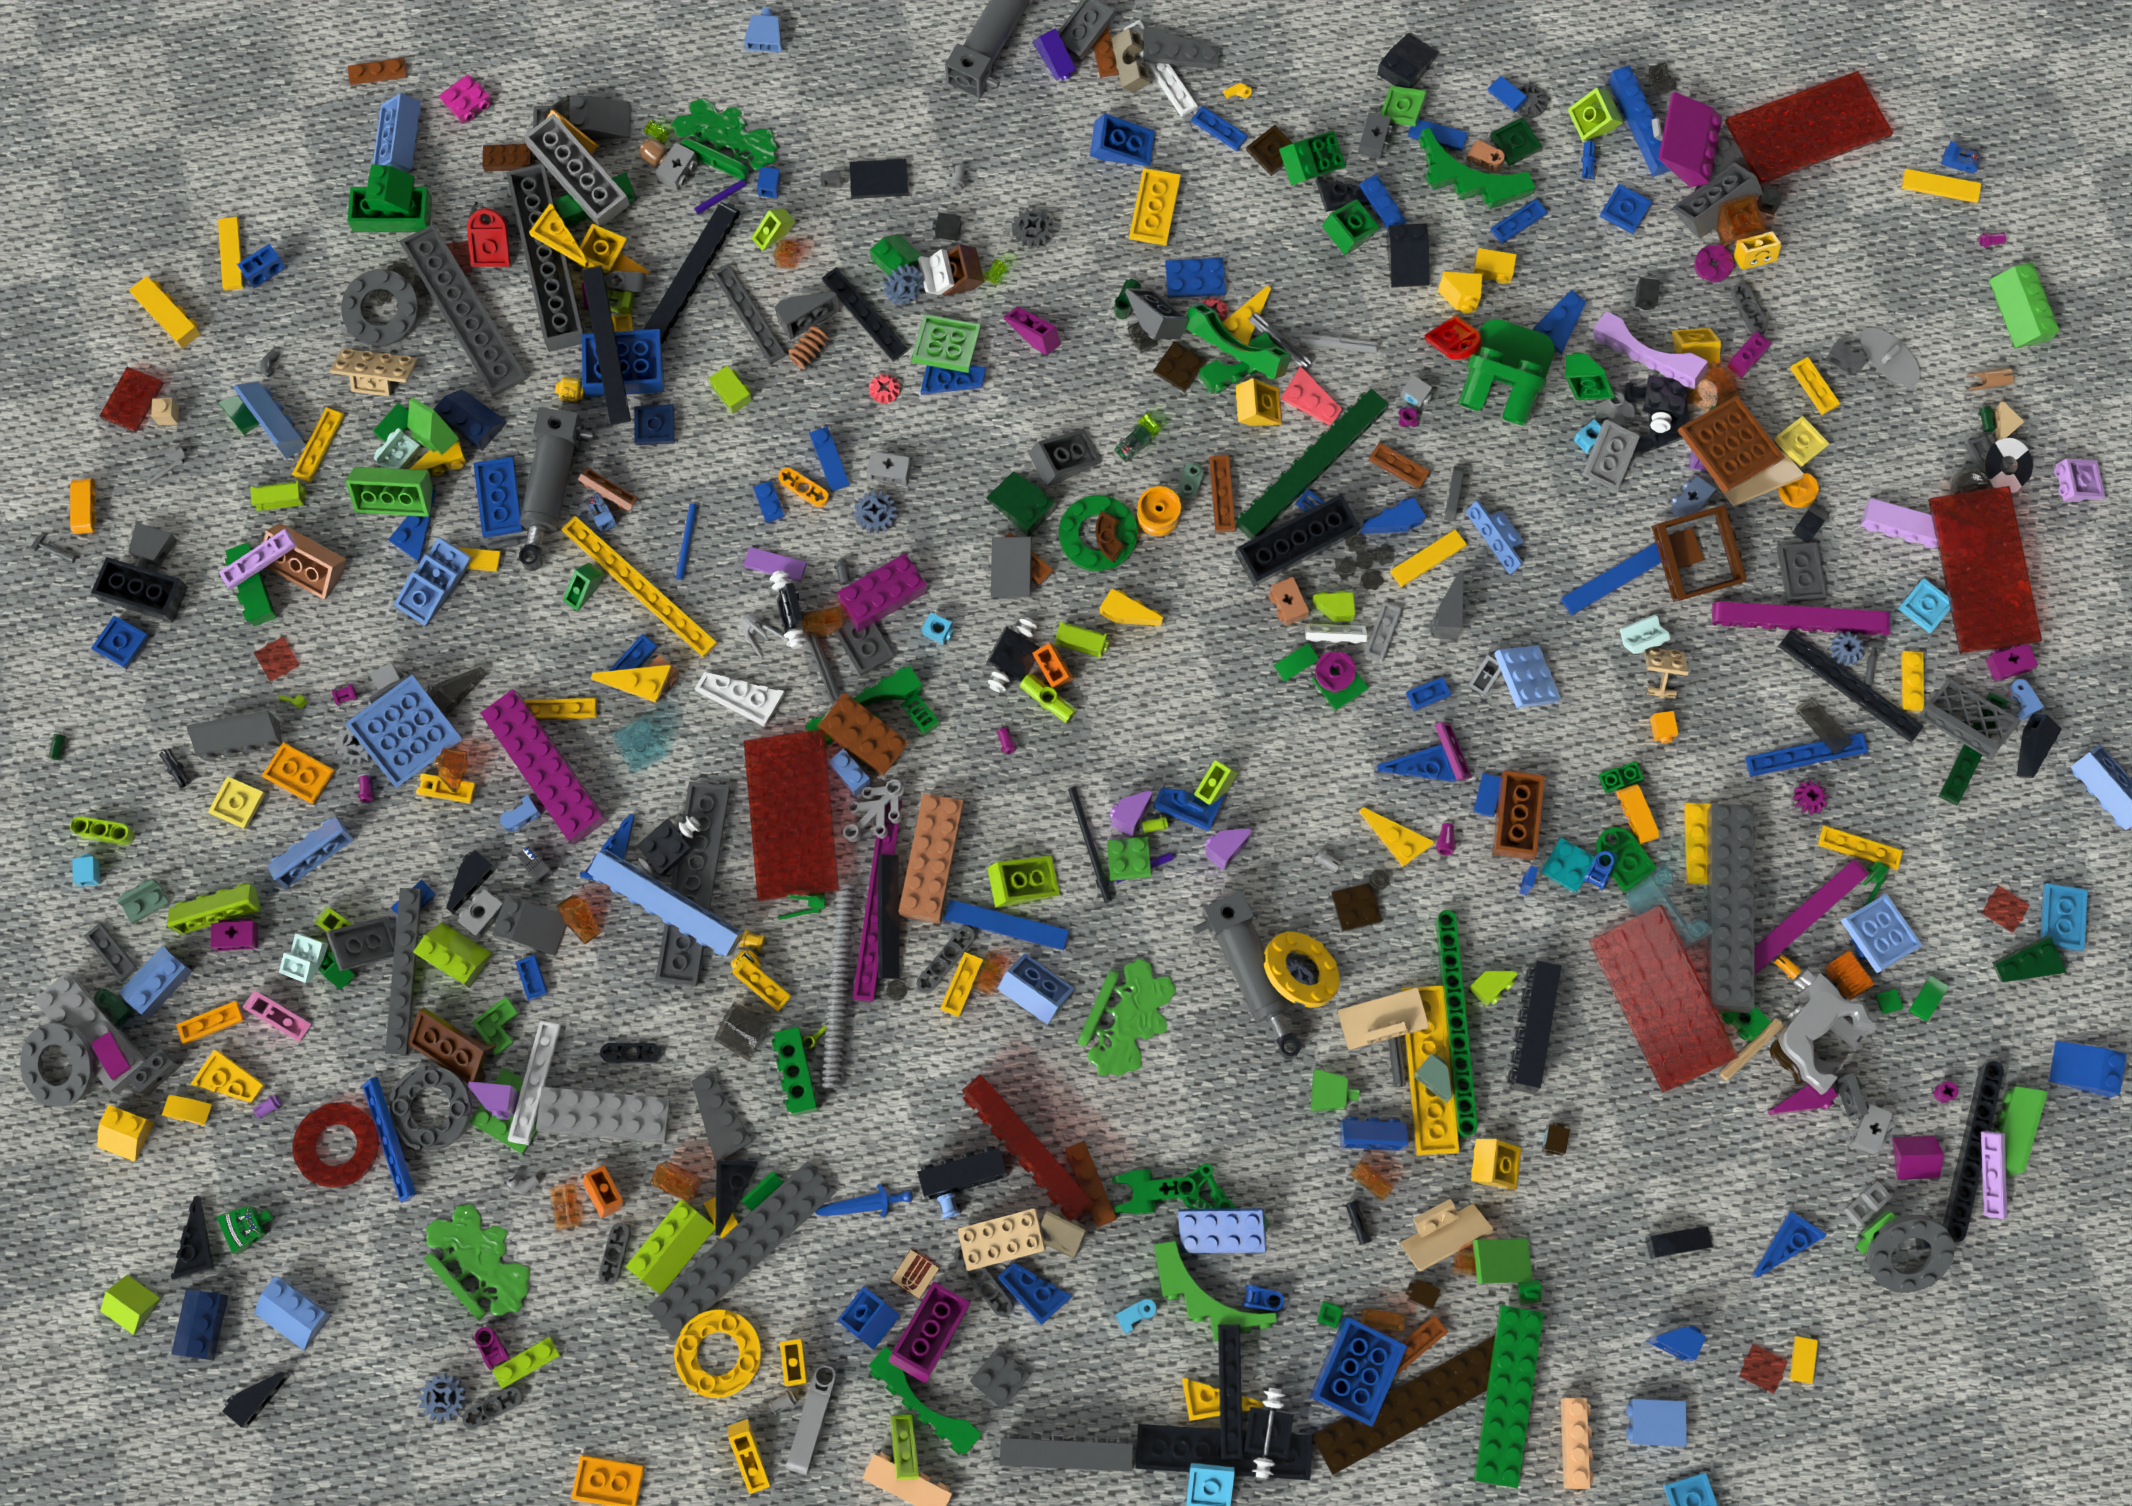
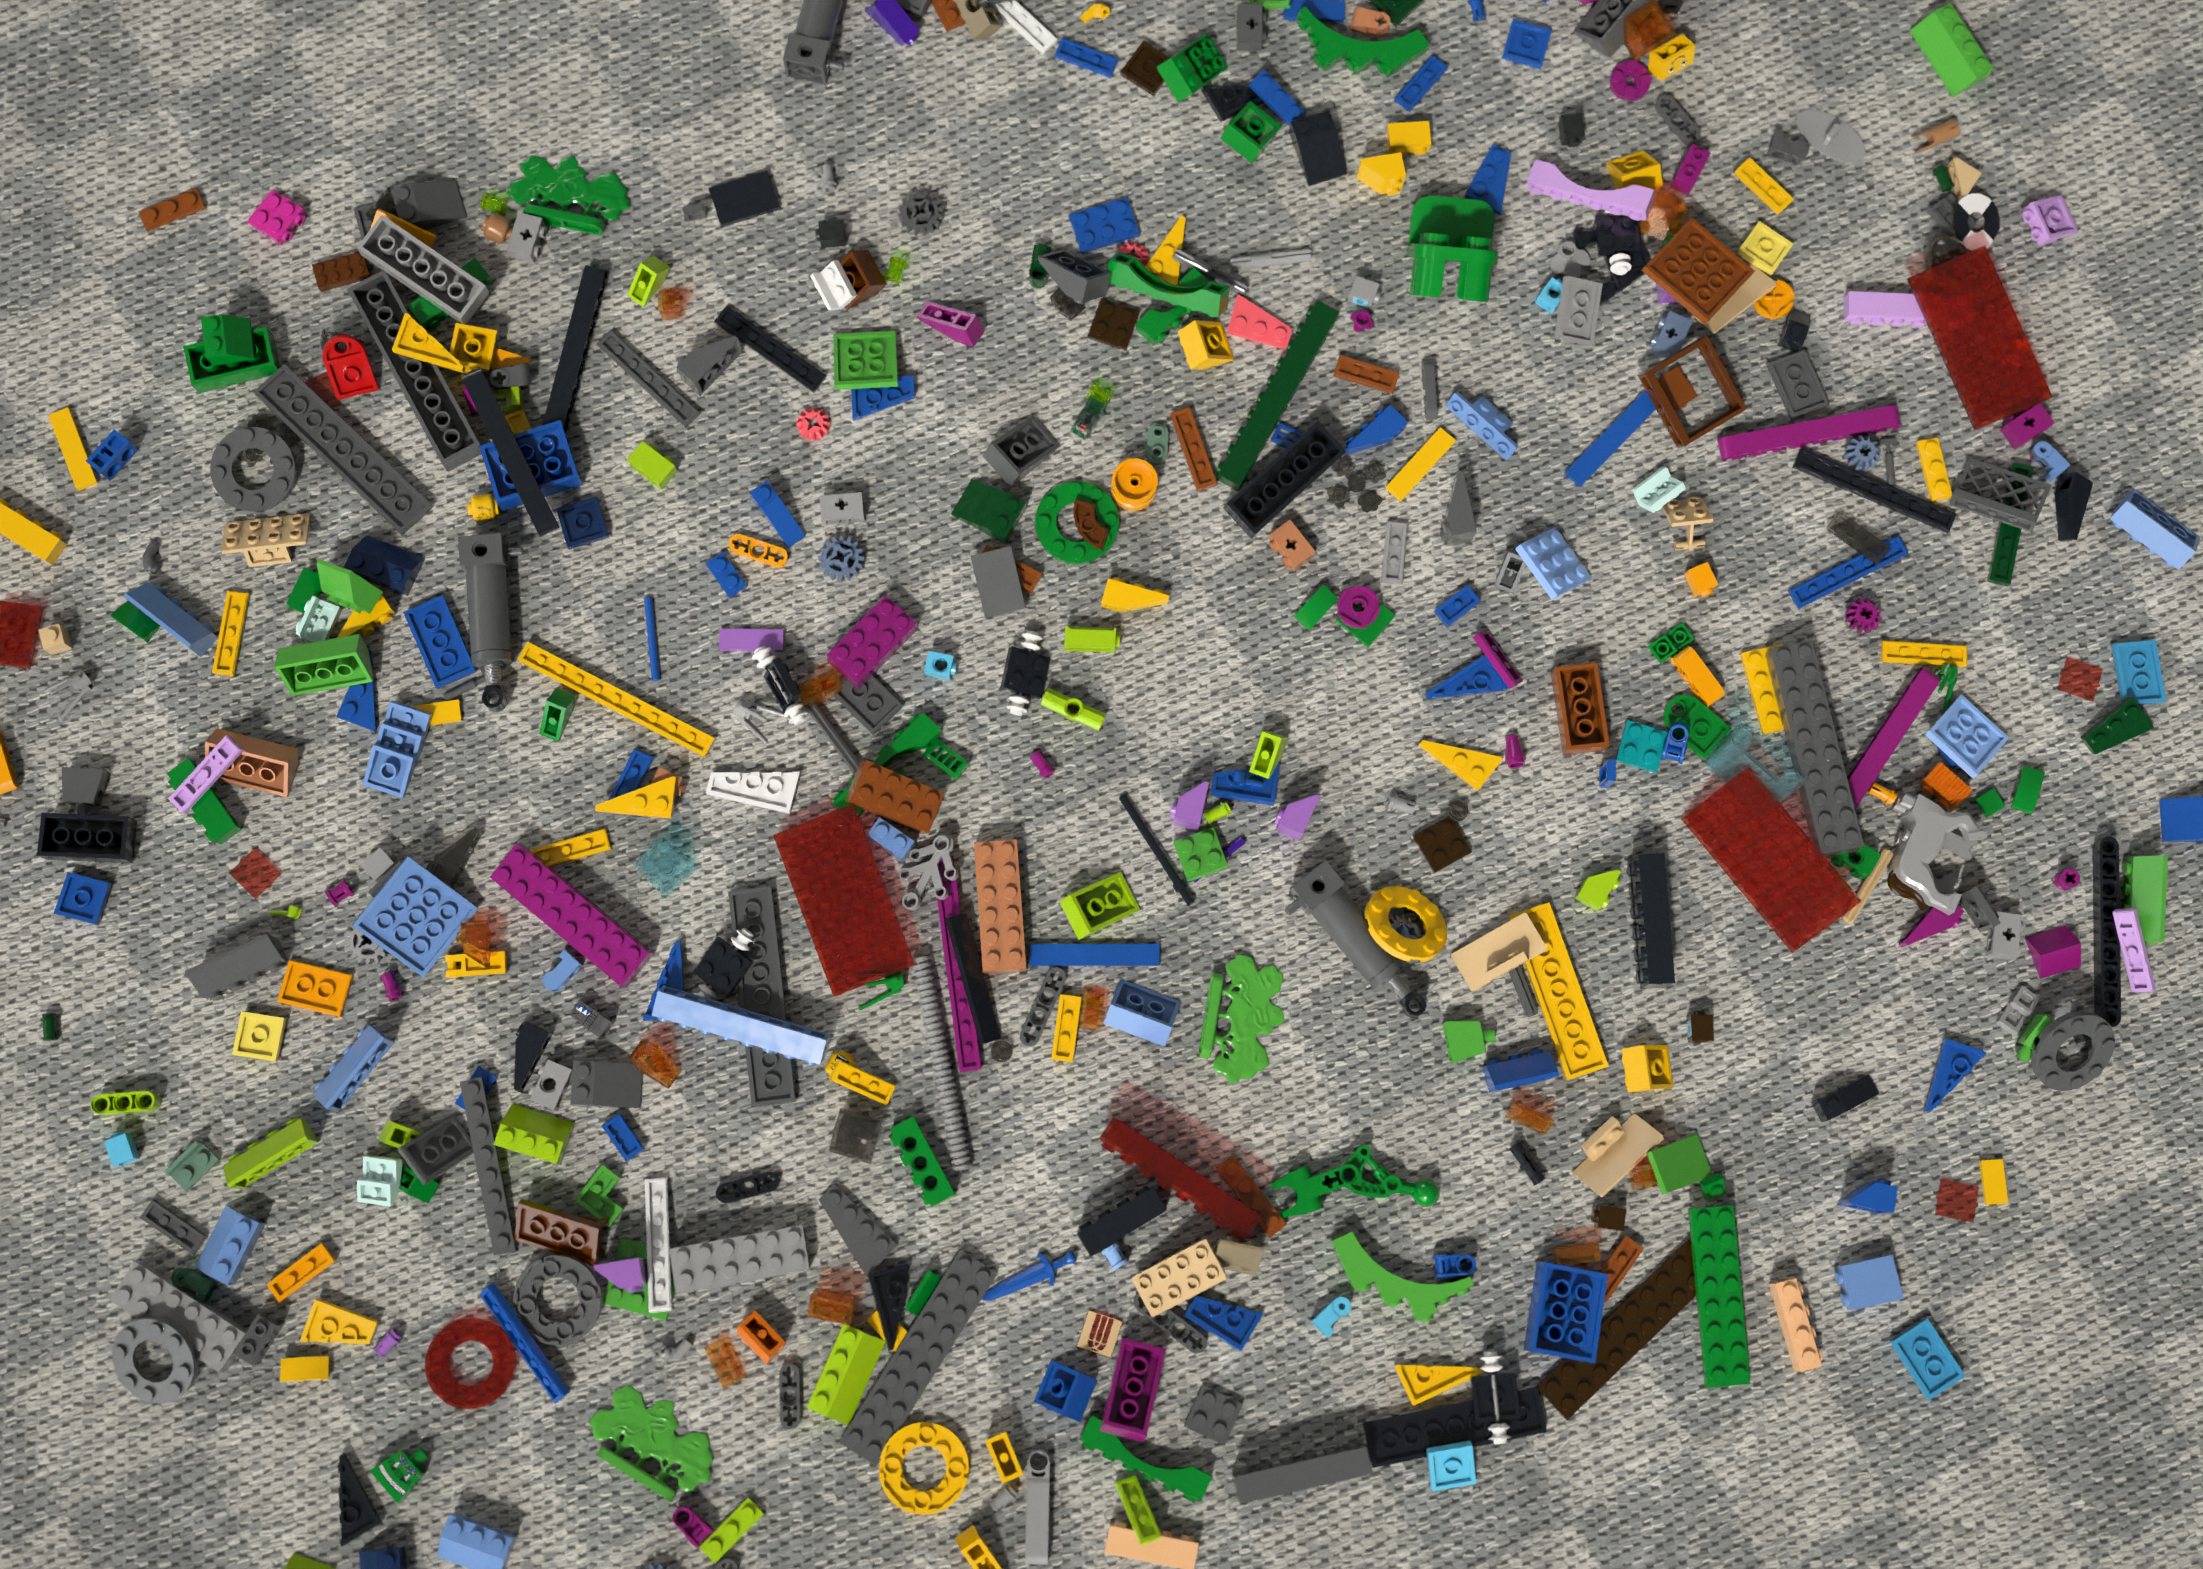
camera: 20 degrees left, 5 degrees up
(111, 1056) = (210, 1337): magenta slope -> none
(123, 1132) = (244, 1410): yellow slope -> none
(175, 768) = (182, 1016): black pin -> none
(245, 939) = (312, 1175): magenta brick -> none
(276, 1015) = (368, 1247): bright pink slope -> none
(278, 496) = (205, 699): lime window -> none
(397, 132) = (214, 274): medium blue slope -> none
(600, 512) = (553, 631): medium blue leg -> none
(607, 489) = (554, 604): dark orange plate -> none
(719, 197) = (572, 268): dark purple bar -> none
(753, 941) = (840, 1039): yellow bush -> none
(763, 32) = (577, 68): medium blue torso -> none
(769, 182) = (629, 231): blue brick -> none
(807, 346) = (720, 398): nougat piece -> none
(816, 1036) = (932, 1120): lime hand -> none
(843, 572) = (825, 630): dark grey pin -> none
(892, 252) = (786, 279): green slope -> none
(903, 284) = (803, 308): sand blue gear -> none
(1053, 666) = (1070, 674): orange brick -> none
(1121, 141) = (988, 97): blue slope -> none
(1154, 207) = (1042, 159): yellow plate -> none
(1222, 1230) = (1396, 1208): plate -> none
(1230, 1392) = (1446, 1366): black tile -> none
(1329, 1314) = (1522, 1262): green tile -> none
(1335, 606) = (1340, 539): lime slope -> none
(1335, 633) = (1347, 566): white plate -> none
(1435, 1077) = (1566, 997): sand green slope -> none
(1454, 338) = (1387, 225): red tile -> none
(1456, 1013) = (1572, 925): green beam -> none
(1487, 795) = (1543, 695): blue tile -> none
(1587, 378) = (1535, 236): green slope -> none
(1926, 605) = (1929, 388): medium azure plate -> none

